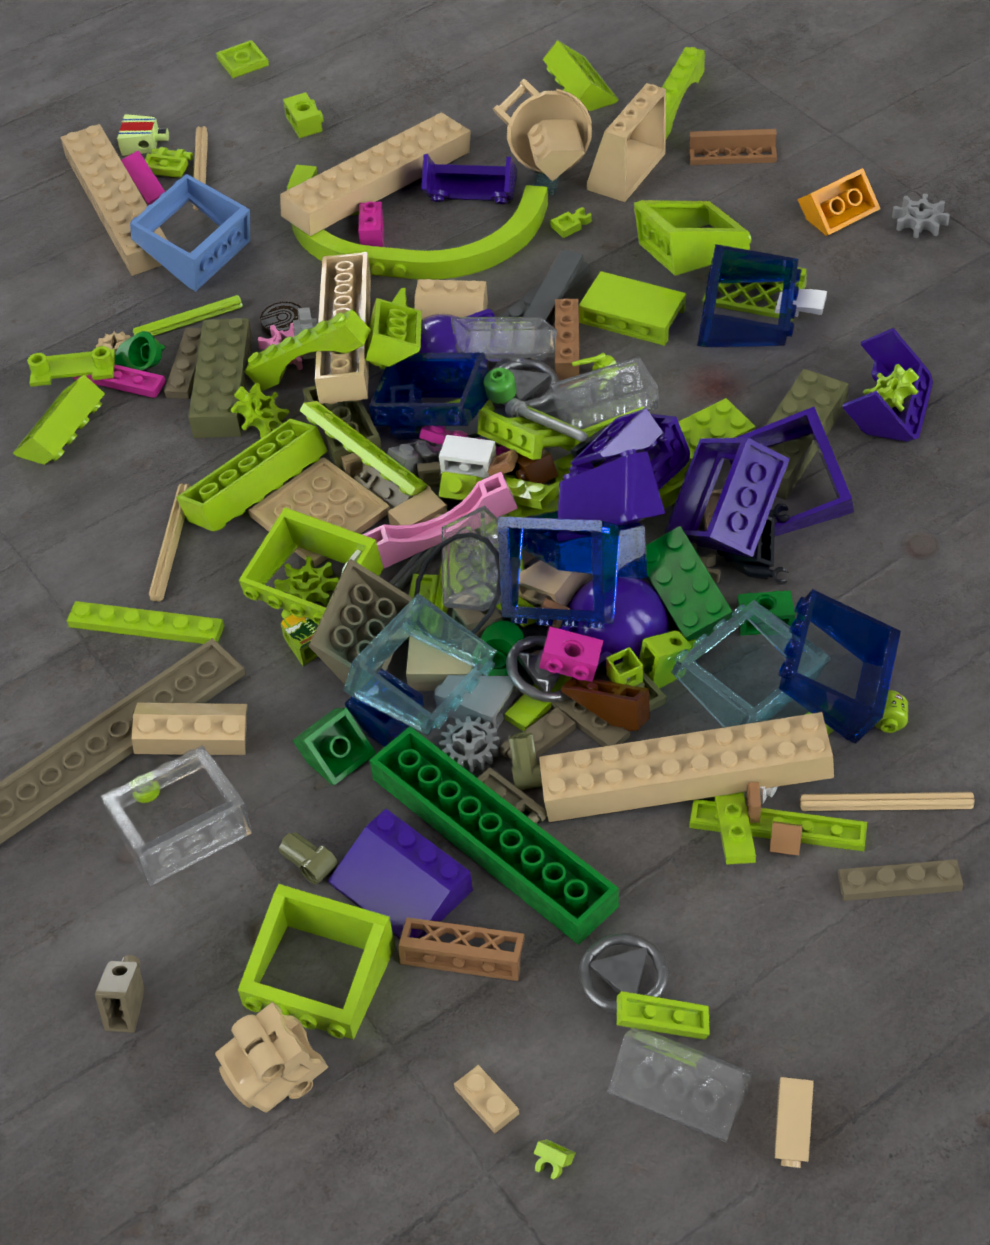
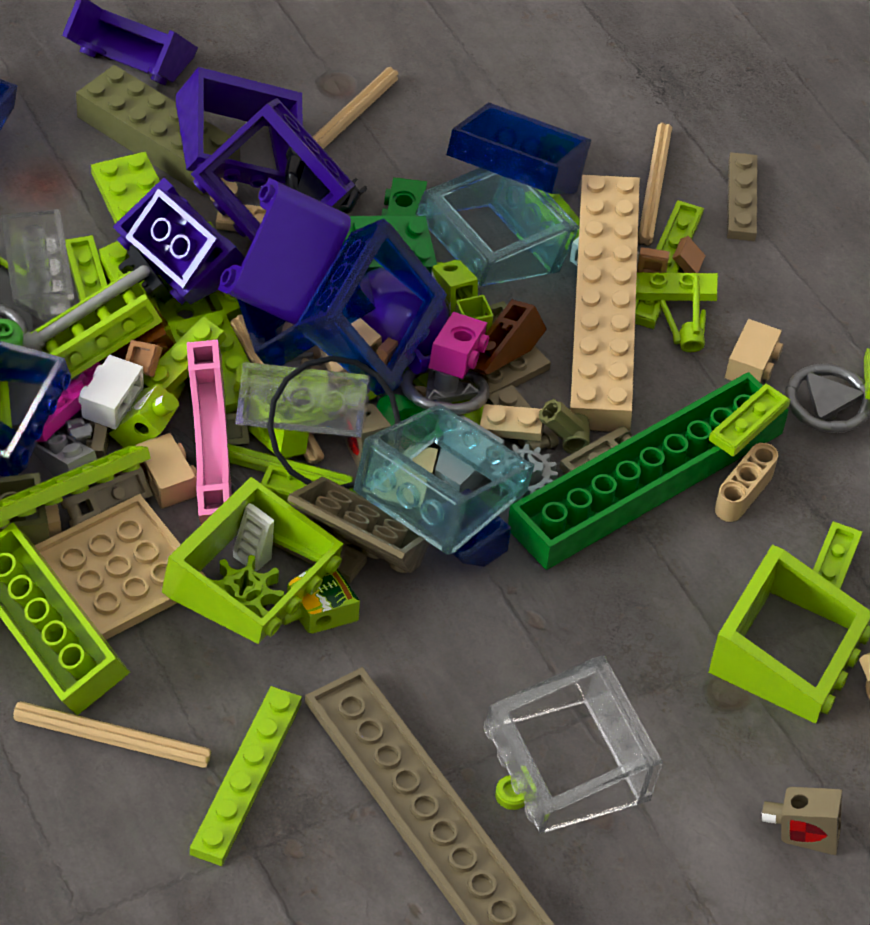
camera: 90 degrees left, 0 degrees up
(187, 726) = (447, 723): tan slope -> none
(312, 861) = (652, 632): olive piece -> none
(334, 745) = (495, 594): green slope -> none
(400, 875) = (686, 558): dark purple slope -> none
(418, 997) = (837, 553): none -> lime plate
(459, 954) = (795, 510): medium nougat fence -> none
(493, 904) = (746, 482): none -> tan beam
(520, 718) = (512, 422): none -> tan plate
(551, 891) = (749, 419): none -> lime tile
(668, 906) = (755, 352): none -> tan brick
(678, 849) = (692, 333): none -> lime plant
(889, 558) = (356, 107): none -> tan axle
(895, 386) = (126, 34): lime gear -> none

